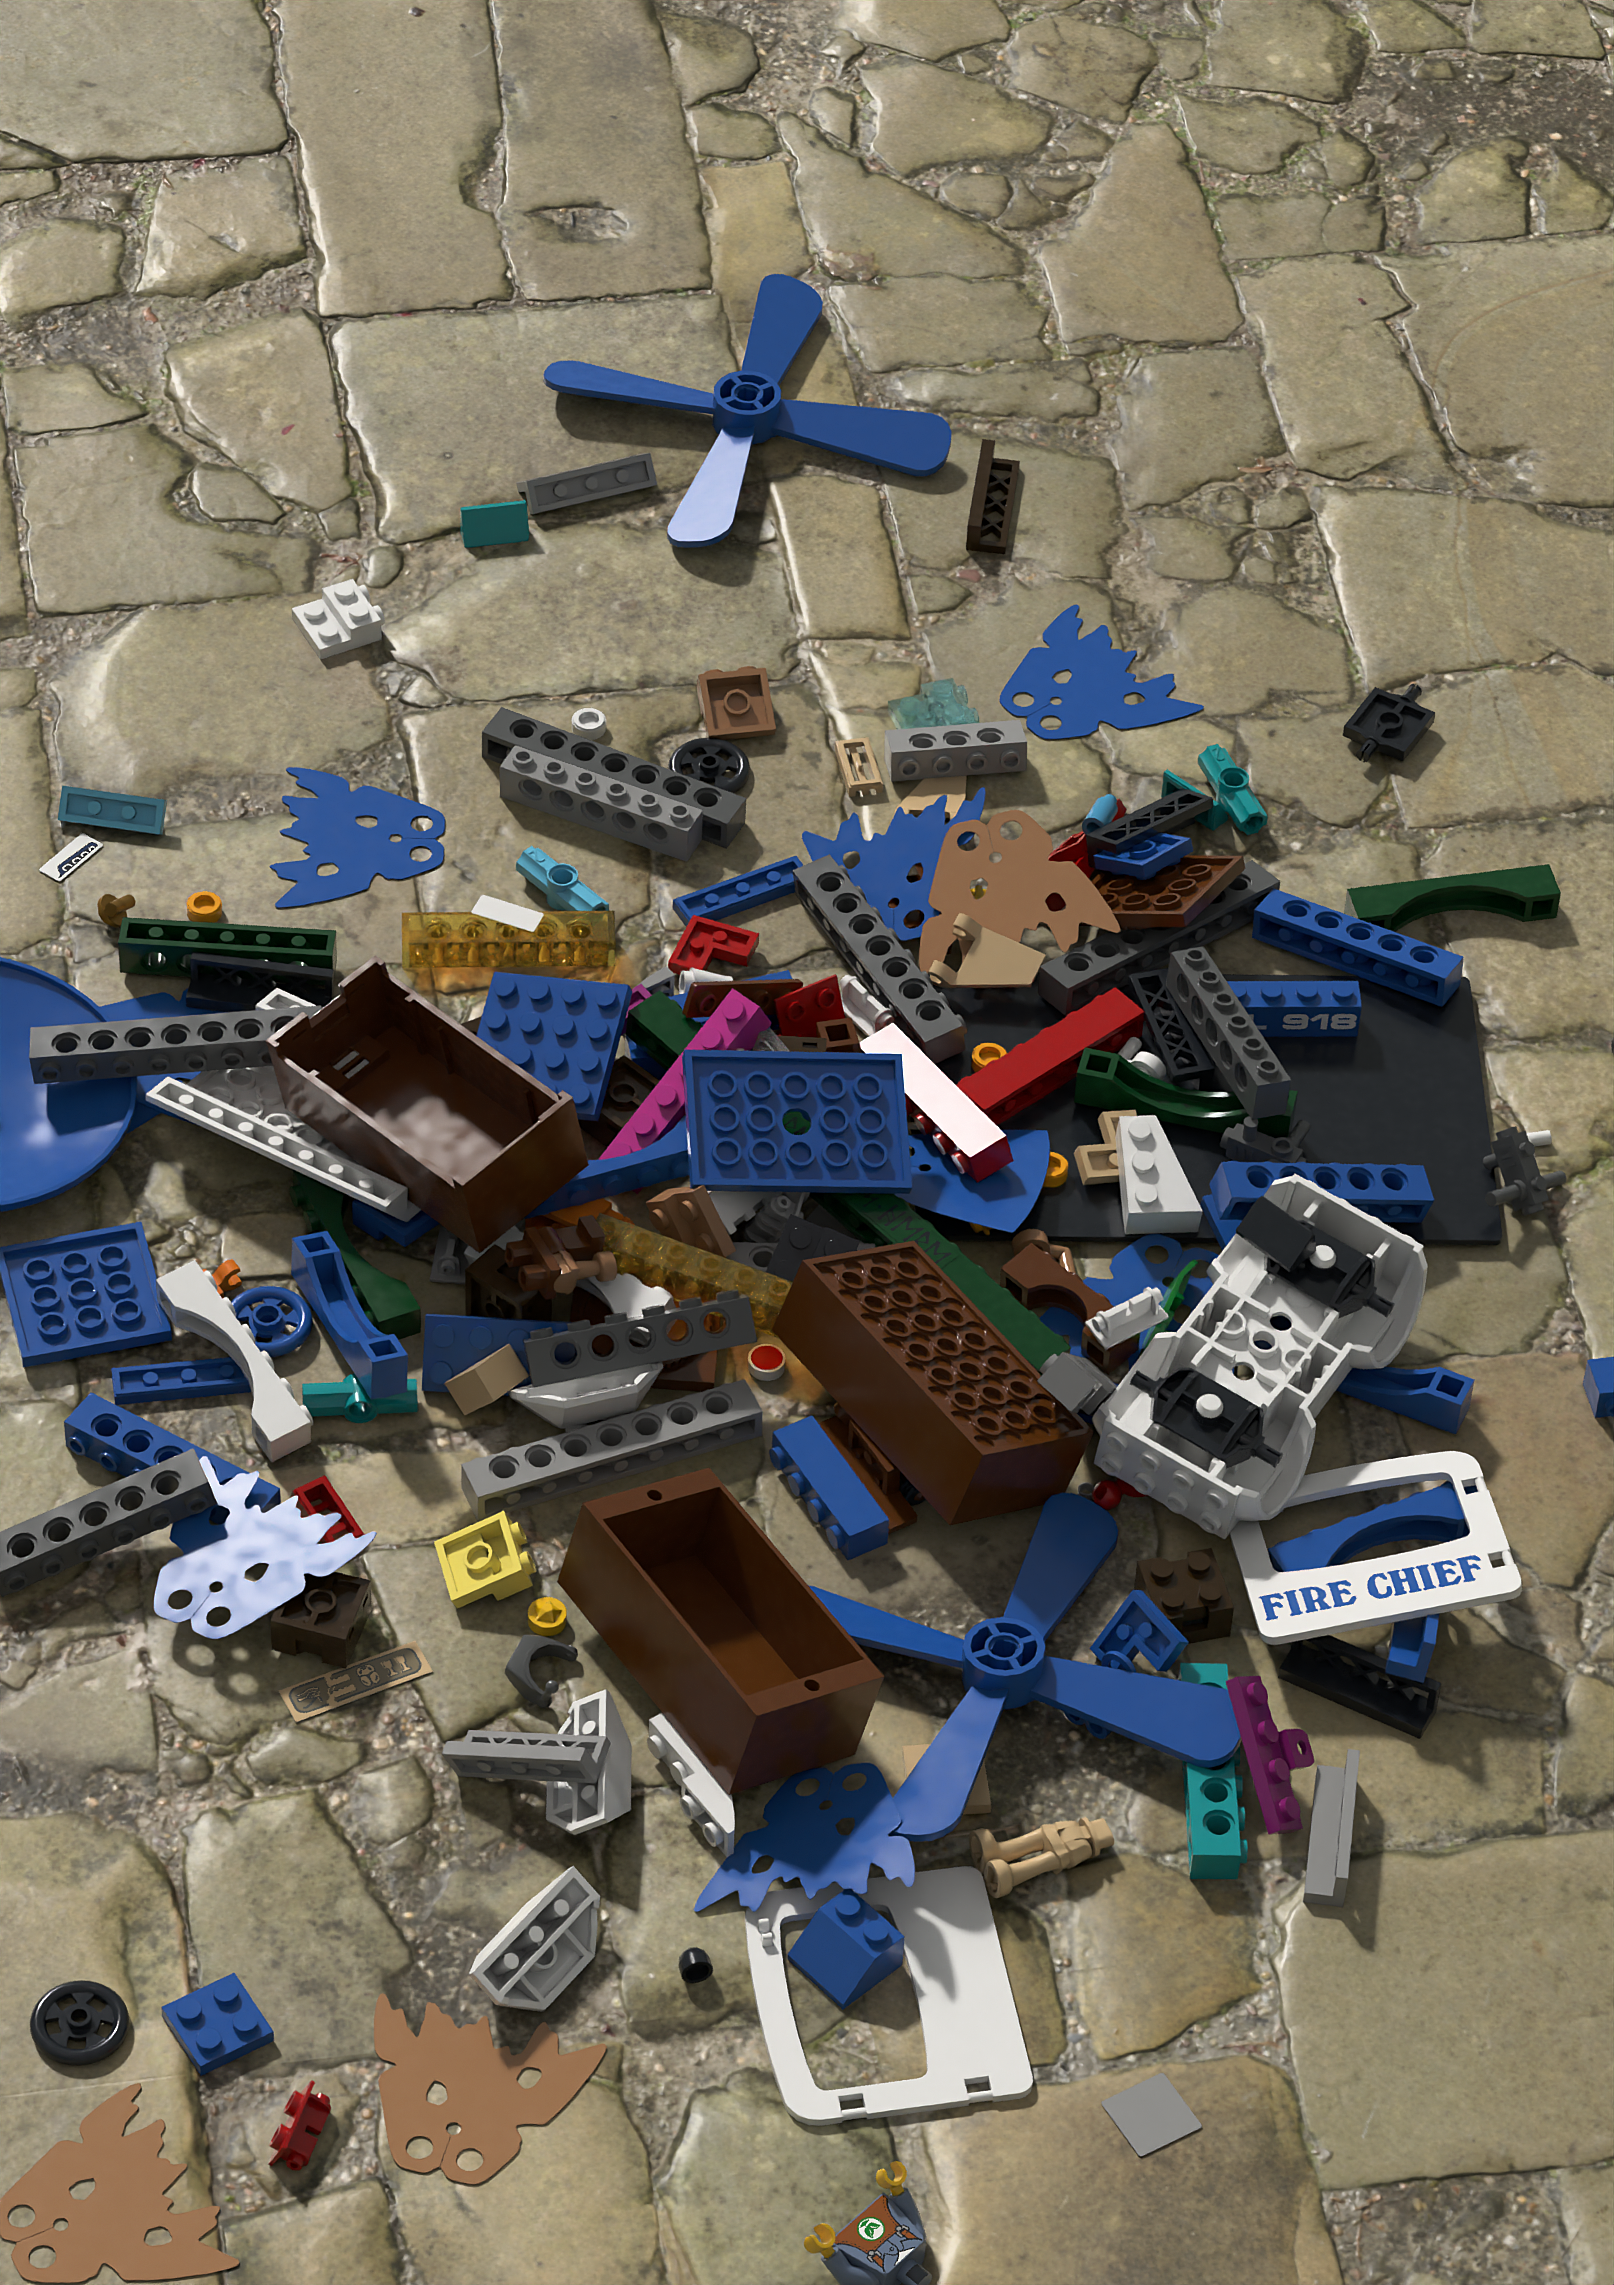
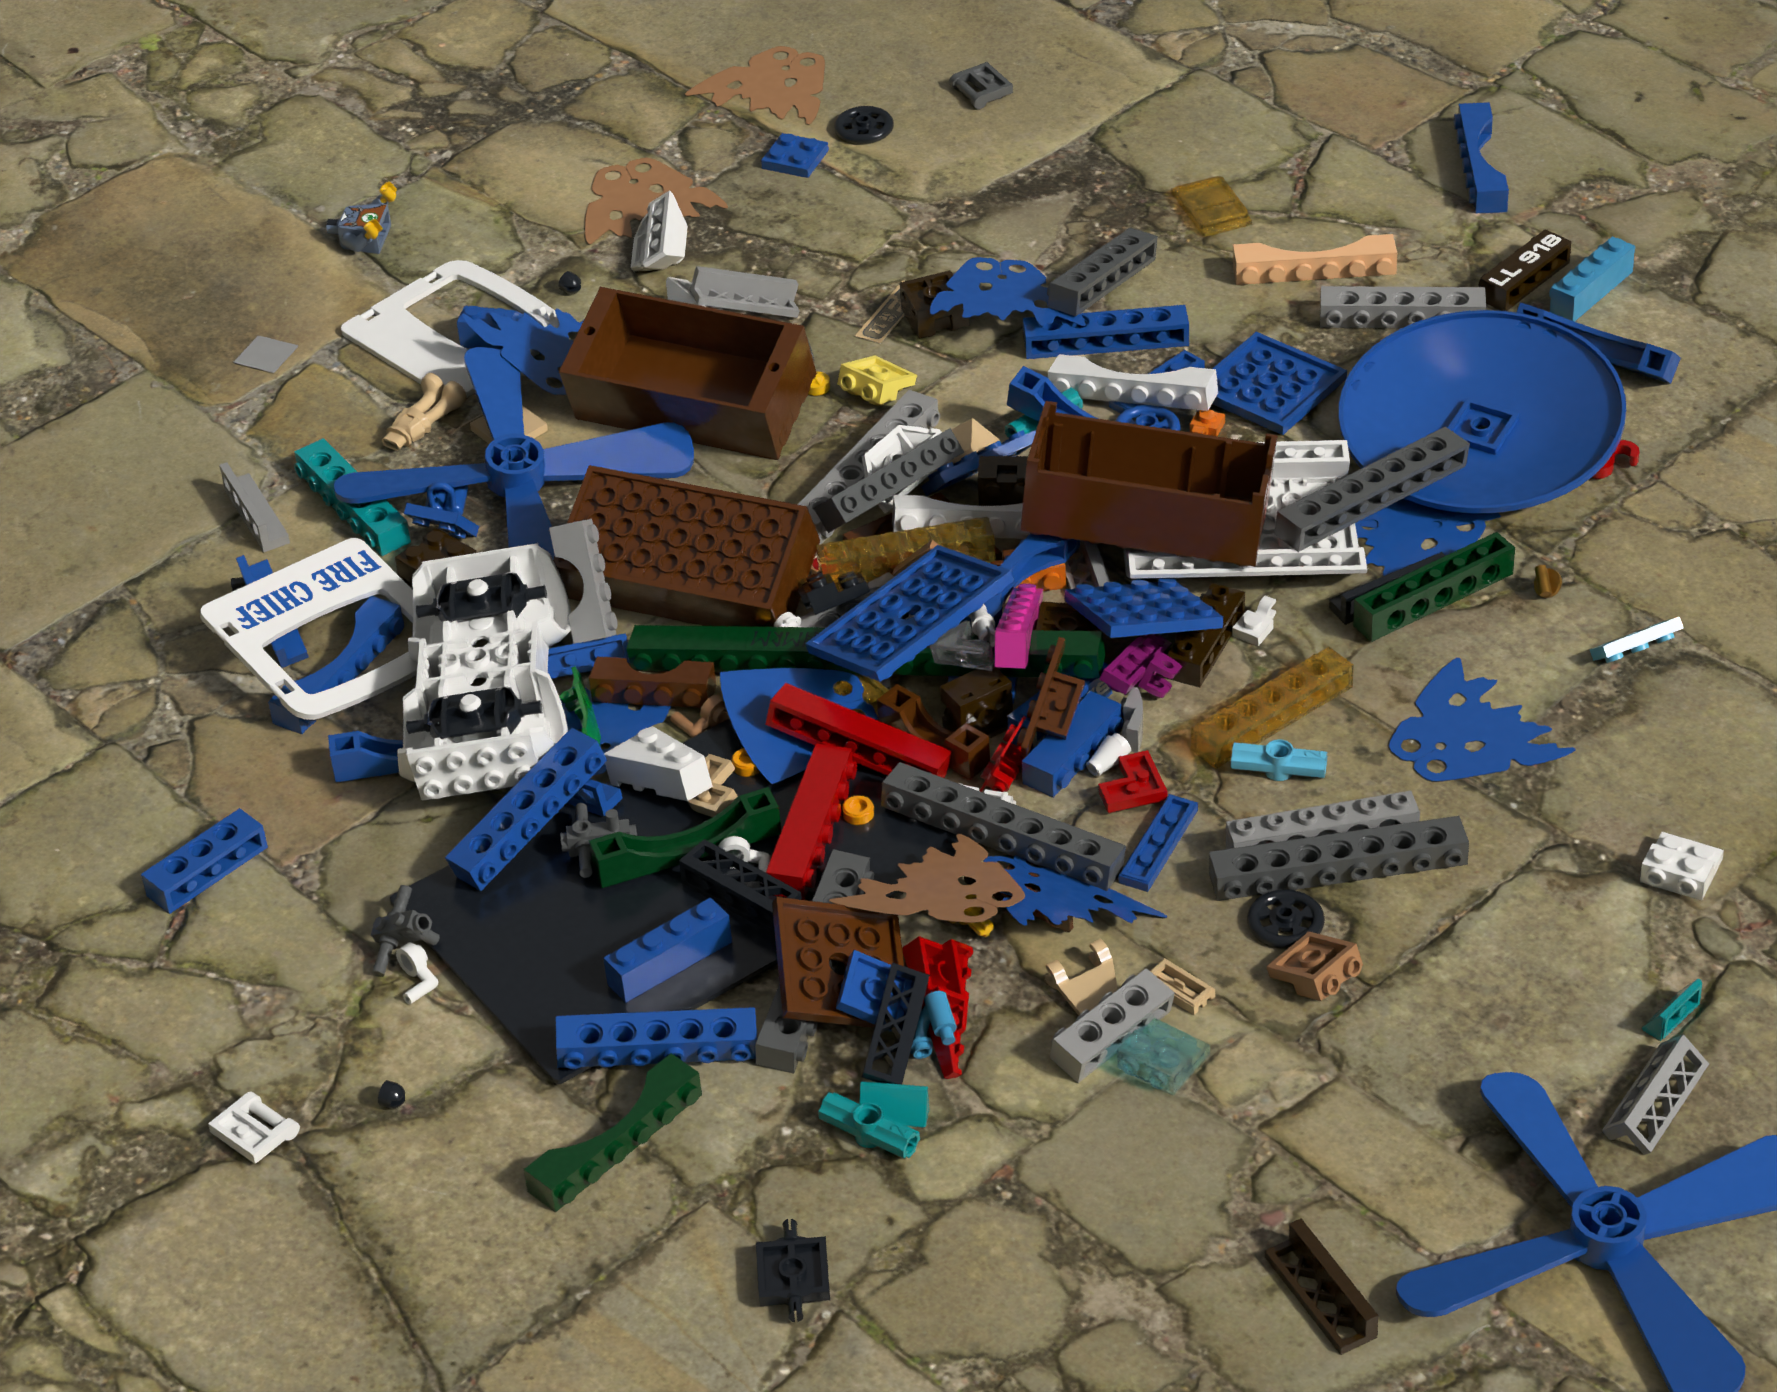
camera: 150 degrees right, 5 degrees down
(70, 857) = (1628, 612): white sticker -> none
(204, 907) = (1498, 625): light orange tile -> none
(291, 2140) = (706, 137): red hinge -> none
(323, 1490) = (996, 361): red slope -> none
(507, 913) = (1283, 702): white sticker -> none
(561, 1257) = (986, 473): reddish brown hips -> none
(589, 723) = (1410, 900): white tile -> none
(990, 960) = (917, 845): tan flag -> none
(1094, 688) = (1071, 1176): blue piece -> none
(1128, 1318) = (598, 664): white hinge -> none
(1228, 1033) = (678, 854): dark grey brick -> none
(1269, 1754) = (310, 497): magenta plate -> none
(1277, 1234) = (507, 690): black slope -> none

